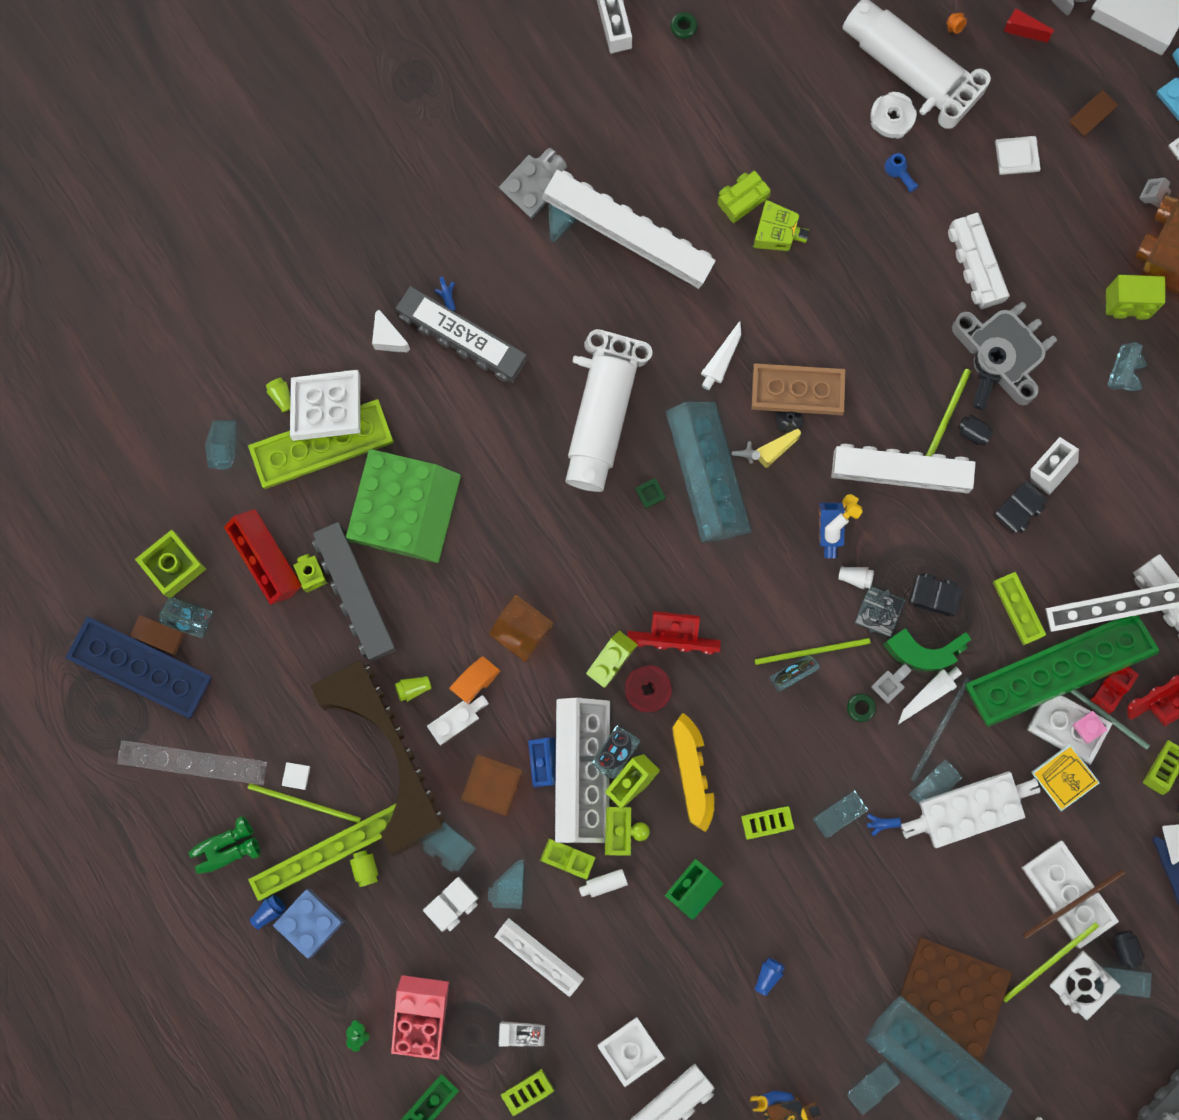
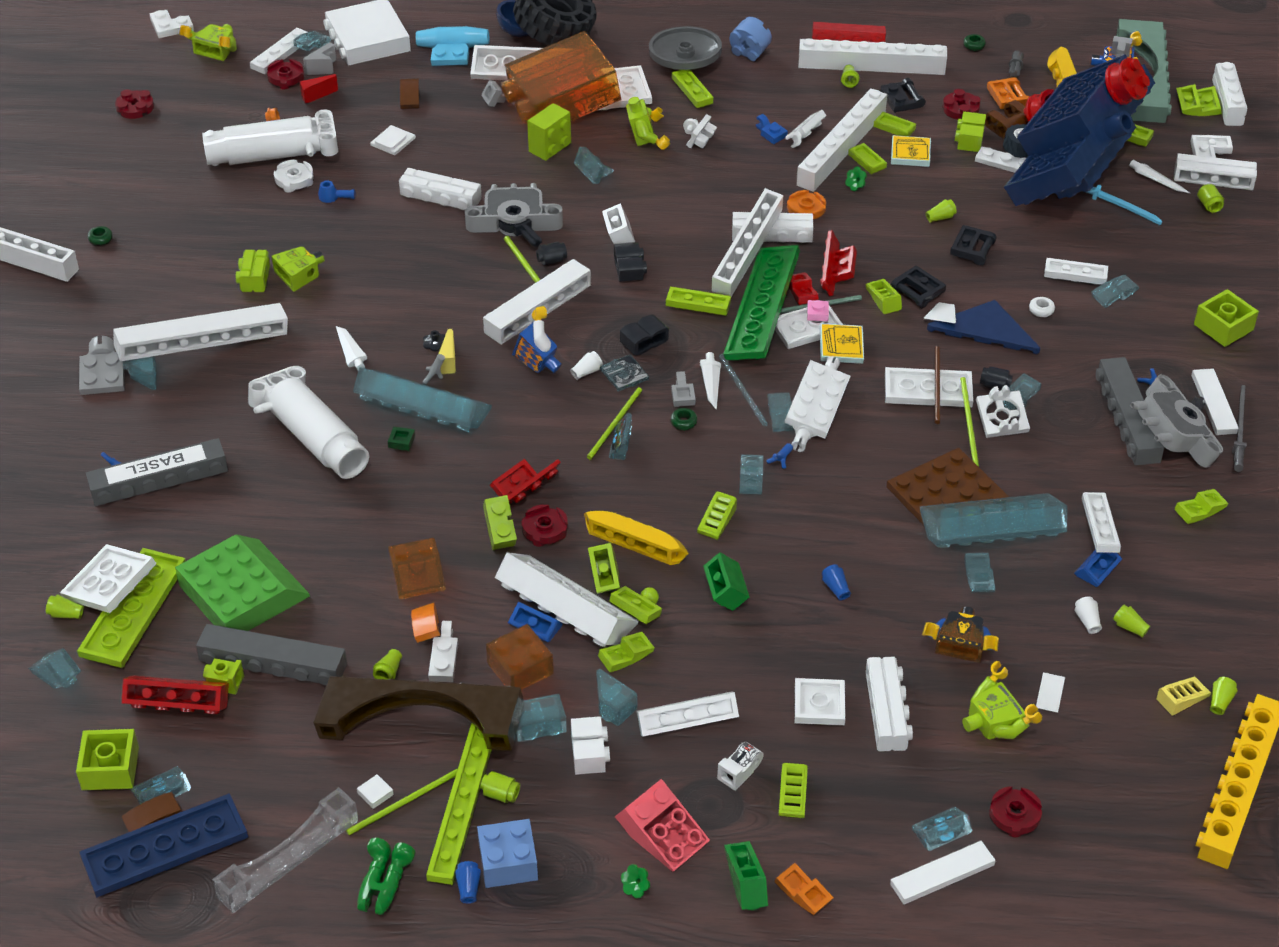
camera: 55 degrees left, 35 degrees down
(386, 336) = (104, 514): white slope -> none
(604, 884) = (669, 639): white cylinder -> none
(615, 752) = (574, 567): slope -> none
(798, 389) = (419, 320): medium nougat plate -> none
(918, 658) = (664, 368): green arch -> none

